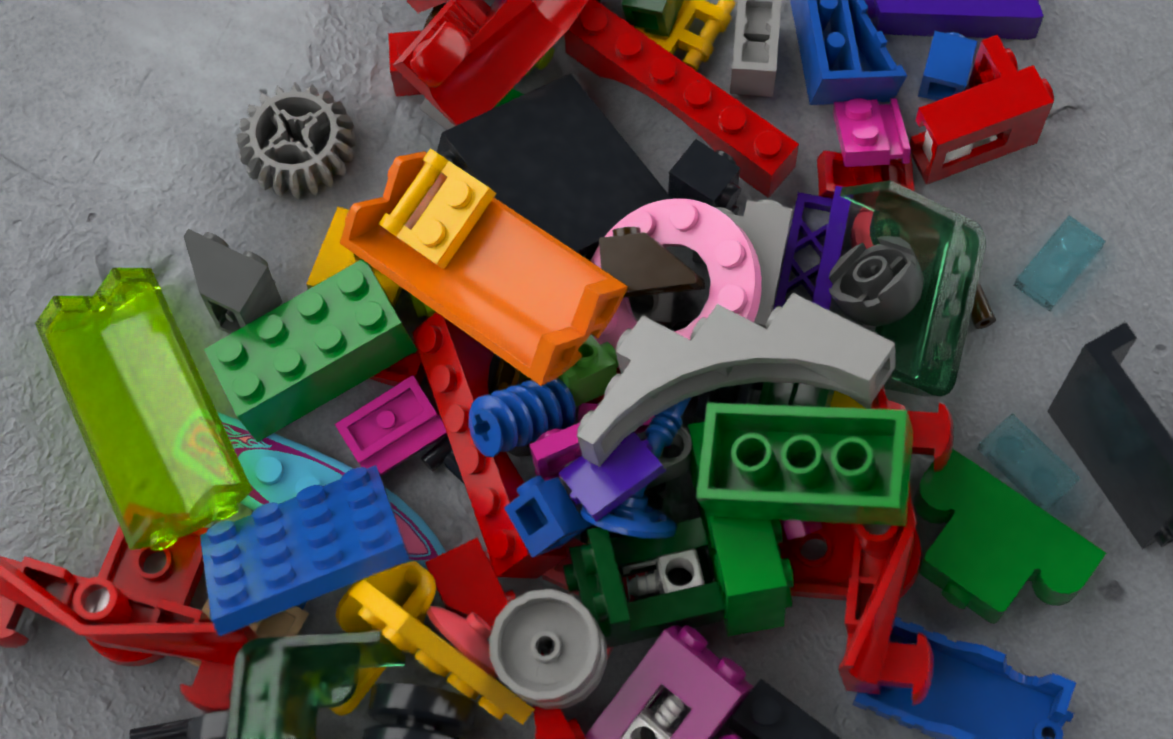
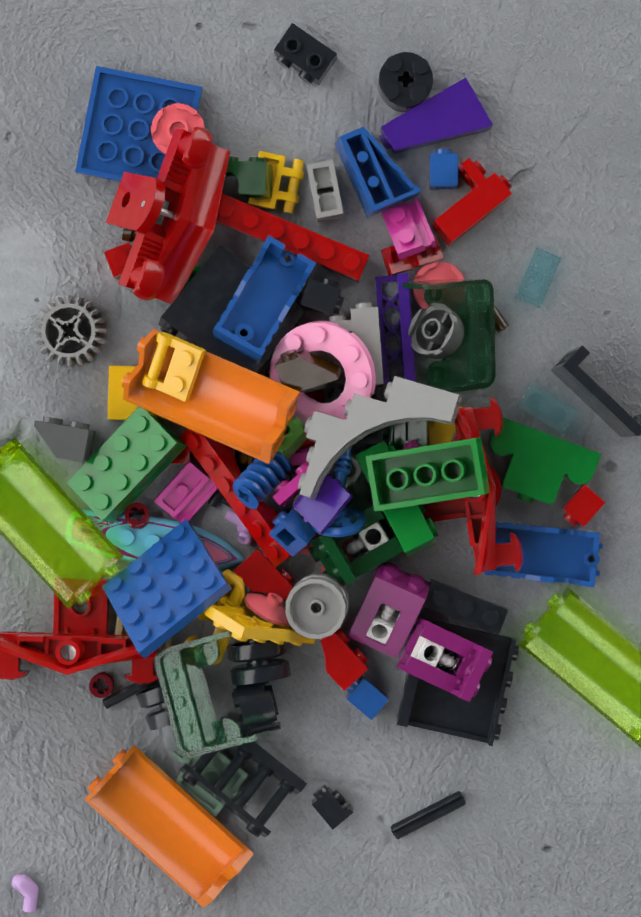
camera: 20 degrees left, 20 degrees up
(125, 711) = (107, 680): none -> dark red bush
(295, 452) = (141, 508): none -> dark red bush
(465, 522) = (244, 536): none -> lavender arm
(609, 154) = (263, 299): none -> blue piece
(1052, 637) = (582, 506): none -> red brick

